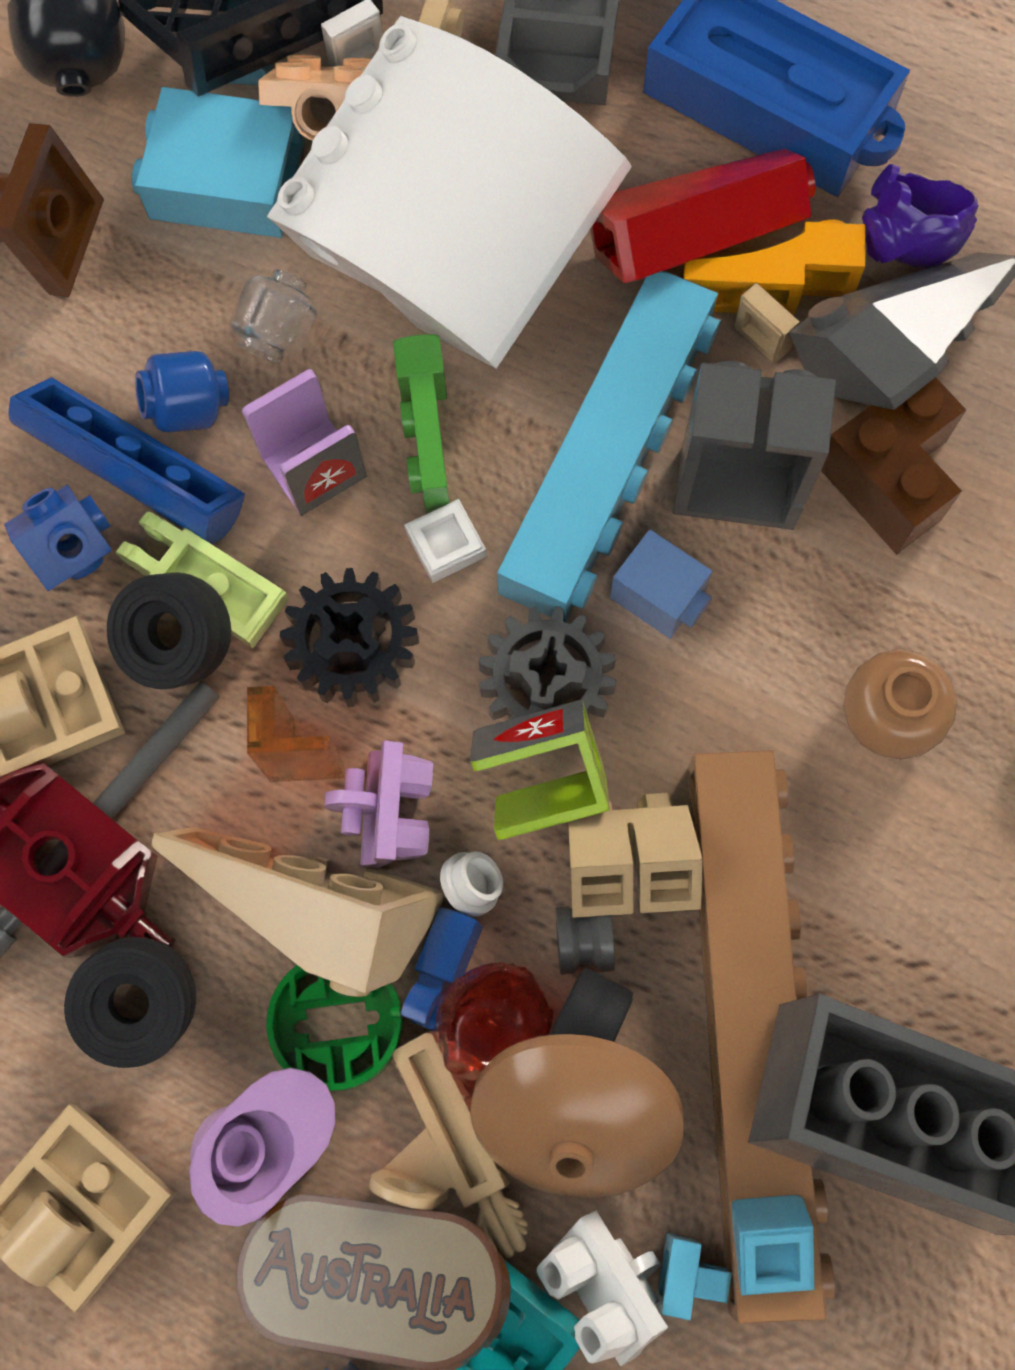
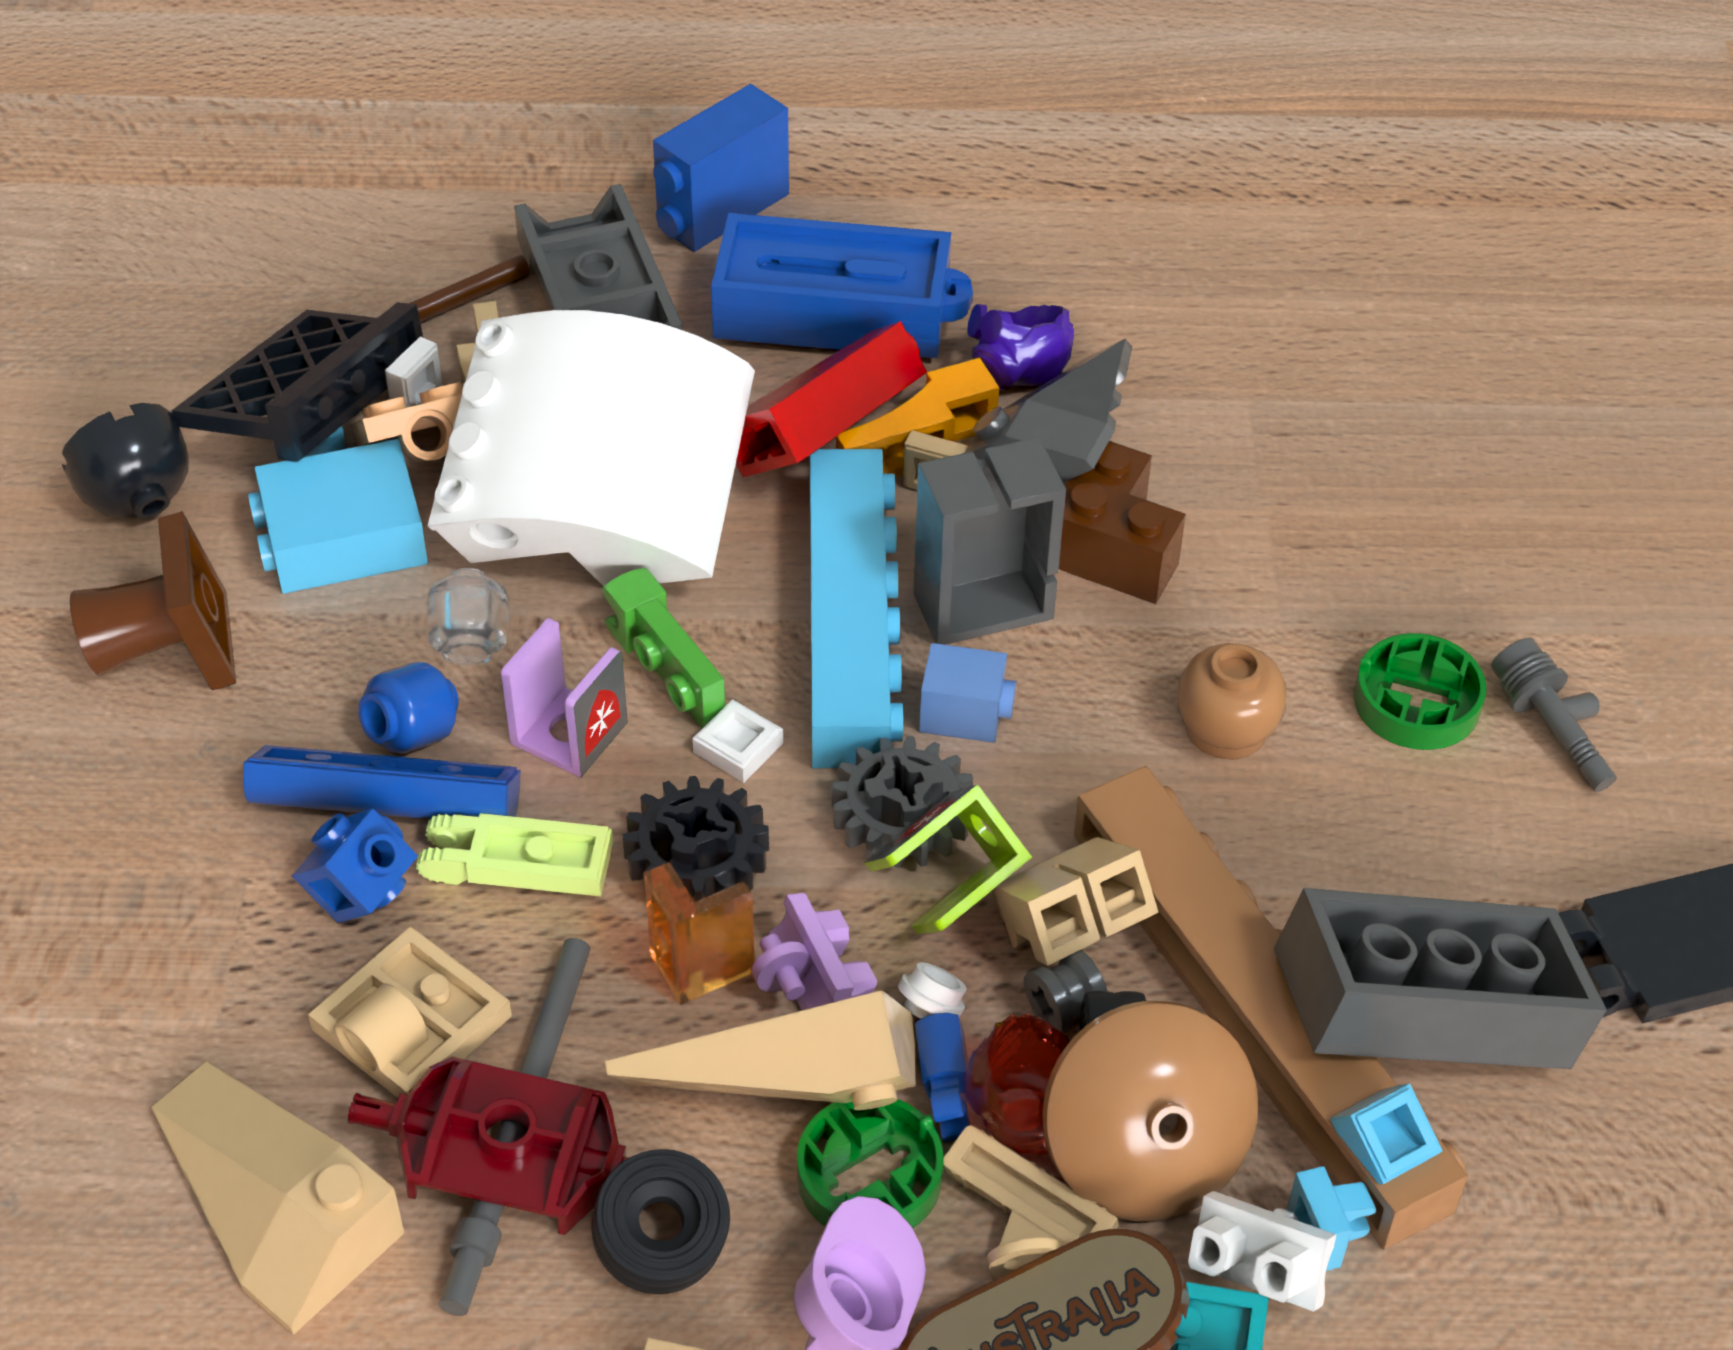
camera: 30 degrees left, 25 degrees down
(135, 638) = (489, 869): black tyre -> none

